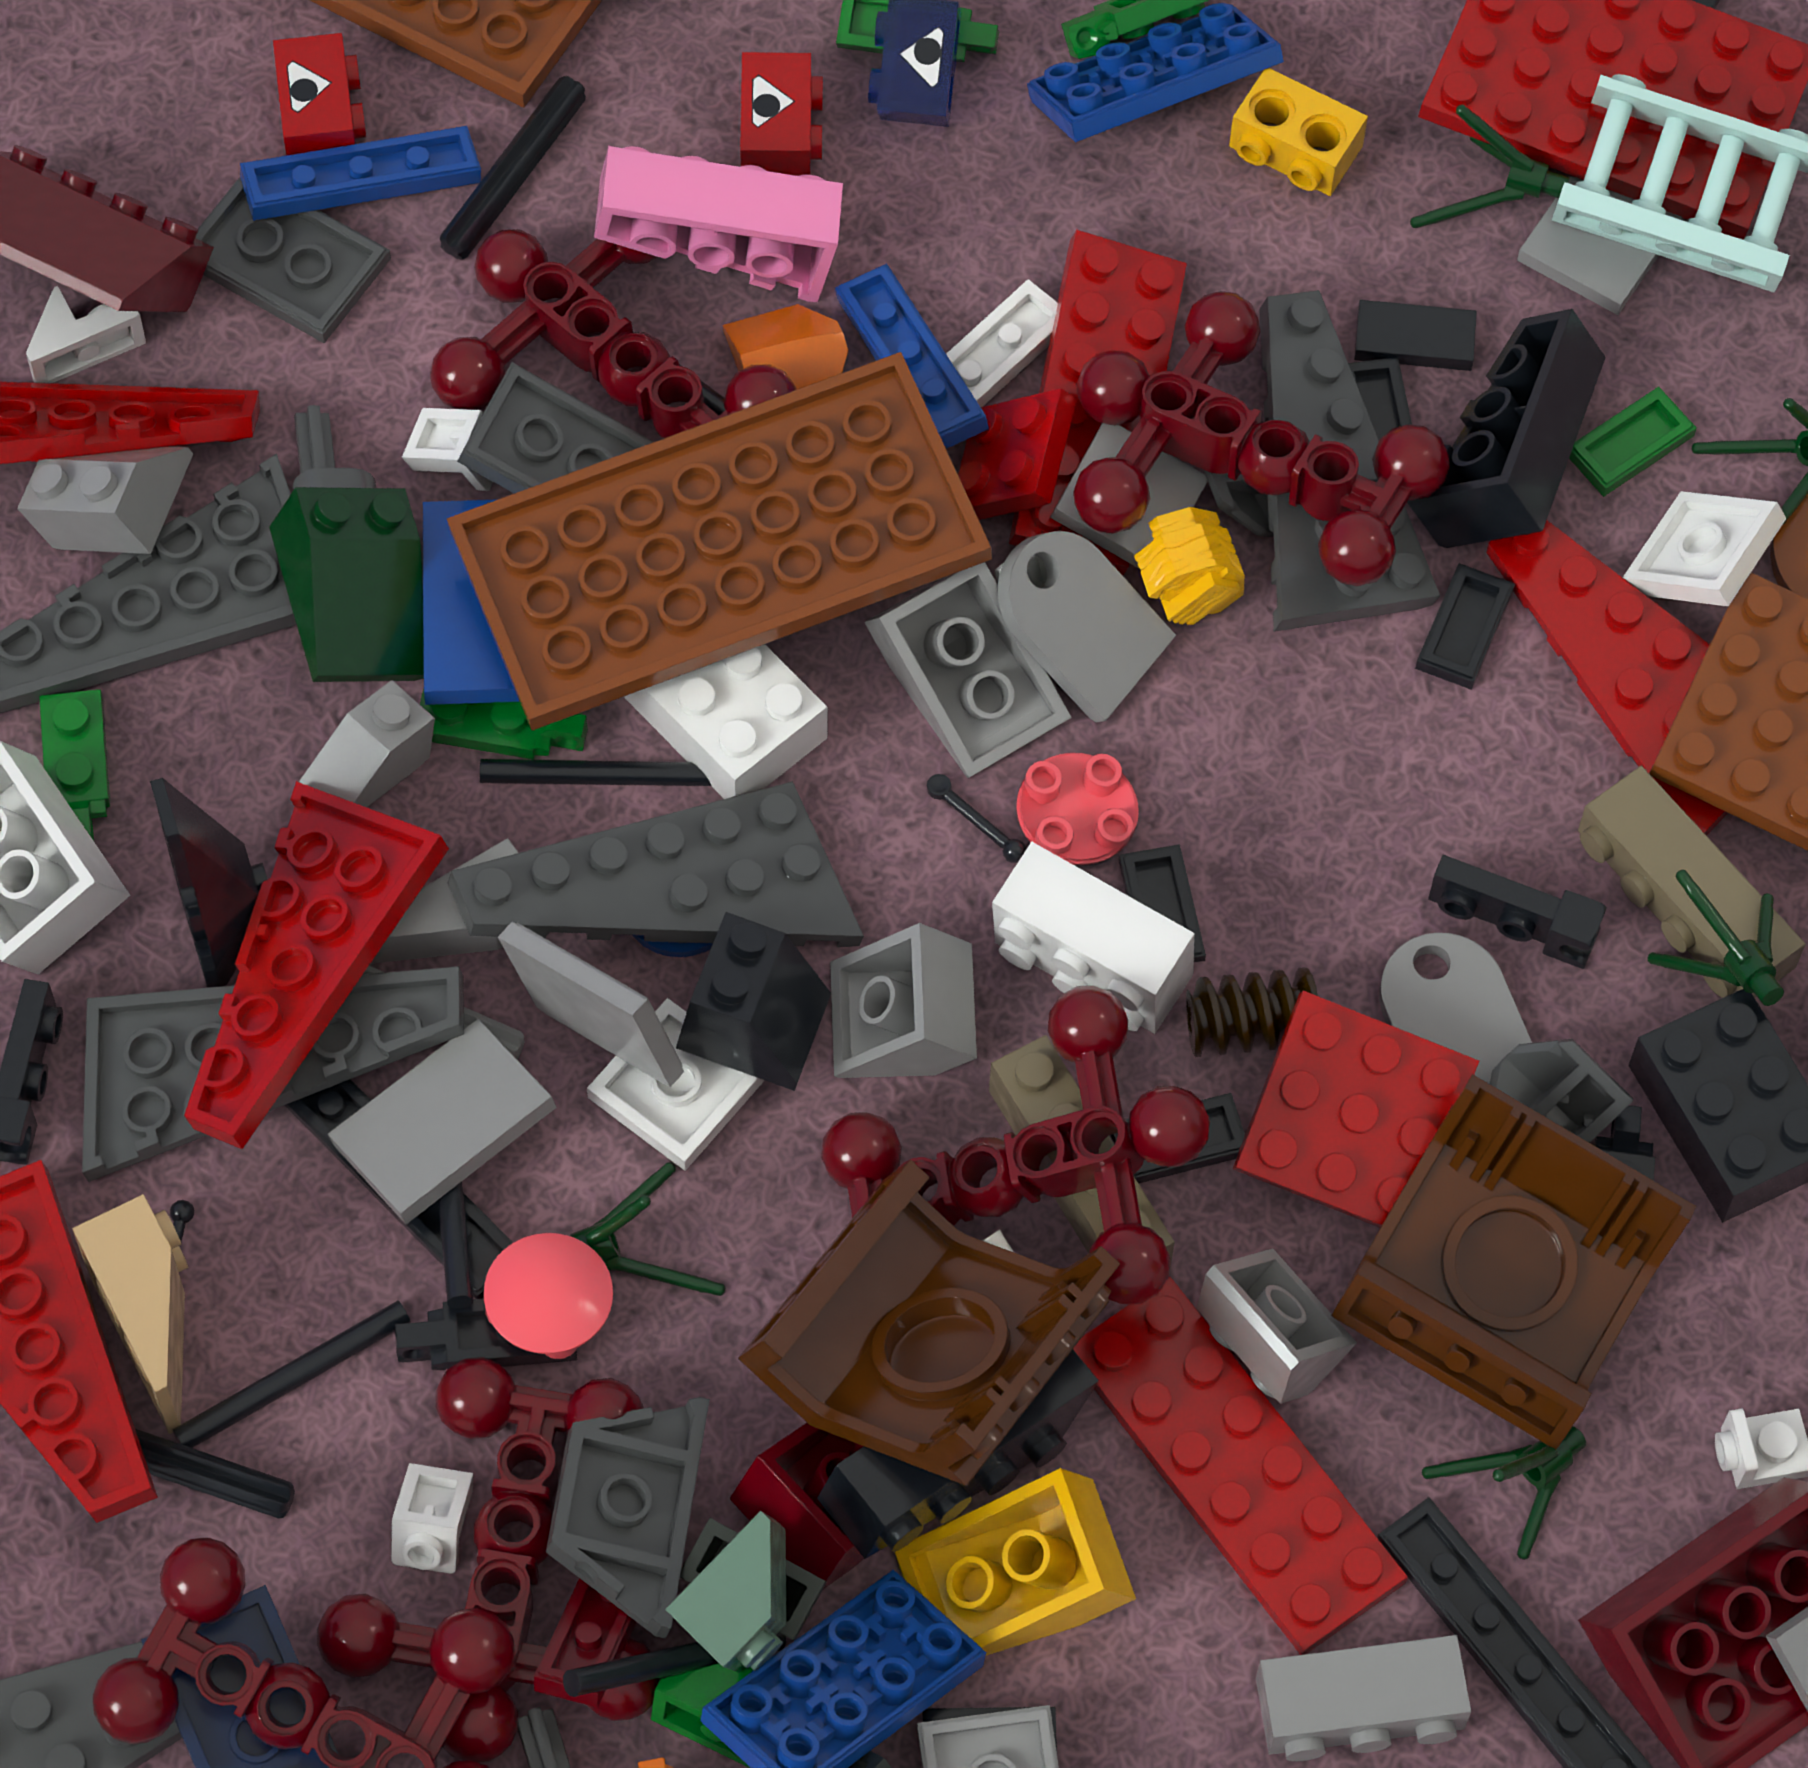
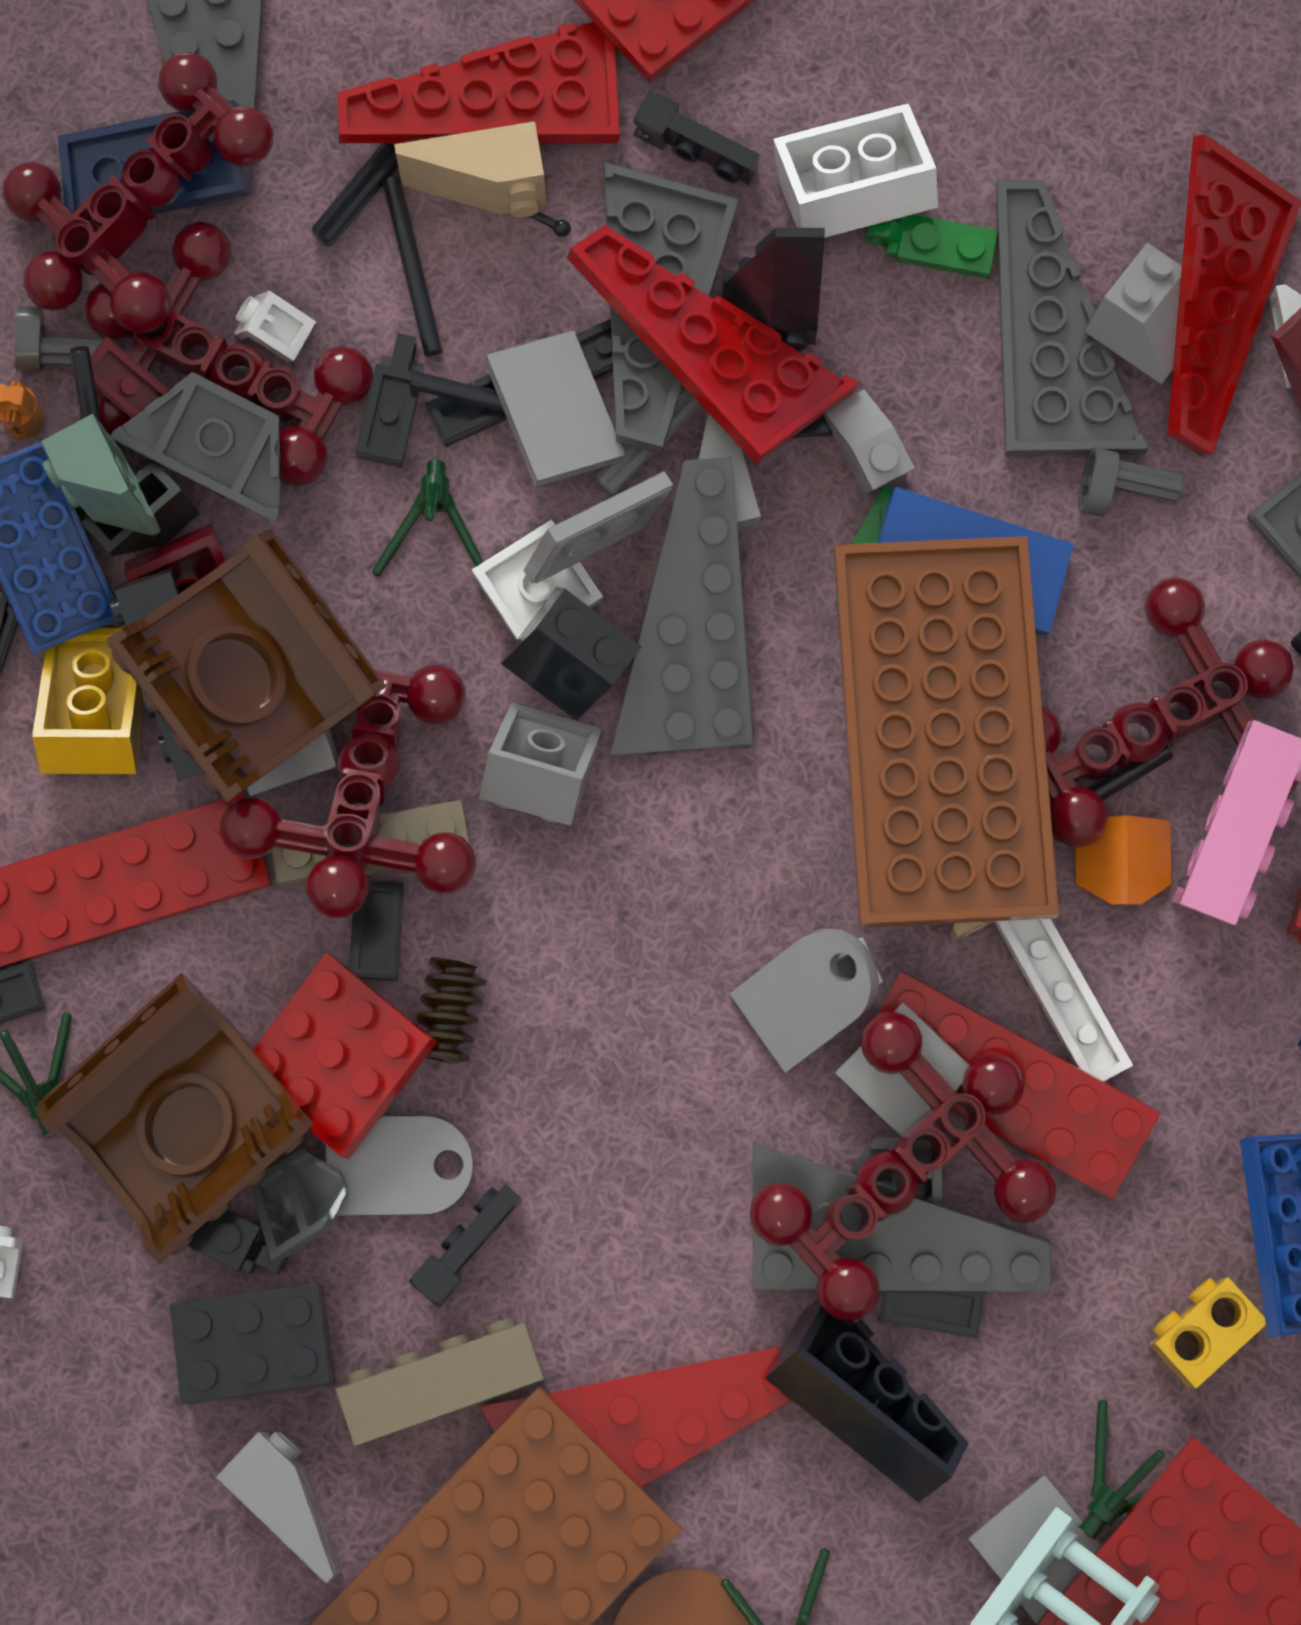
camera: 110 degrees right, 15 degrees up
(353, 582) = (1011, 468): dark green slope -> none
(440, 440) = (1117, 584): white bracket -> none
(541, 434) = (1089, 651): dark grey tile -> none
(548, 1294) = (398, 442): coral dish -> none
(591, 772) = (809, 616): black bar -> none
(737, 719) = (804, 718): white brick -> none
(893, 325) = (1085, 947): blue tile -> none
(940, 788) = (717, 855): black hinge -> none
(967, 669) = (791, 898): light grey slope -> none
(1019, 455) = (969, 993): red plate -> none
(1078, 807) = (663, 947): coral dish -> none
(1092, 936) = (536, 907): white brick -> none
(1161, 883) = (564, 983): black tile -> none
(1191, 565) = (829, 1096): yellow hair -> none
(1272, 1324) = (195, 933): light grey slope -> none
(1416, 334) = (994, 1361): black tile -> none
(1465, 626) = (724, 1301): black tile -> none
(1631, 441) = (845, 1500): green tile -> none
(1705, 548) = (718, 1510): white plate -> none
(1746, 961) = (341, 1385): dark green plant -> none

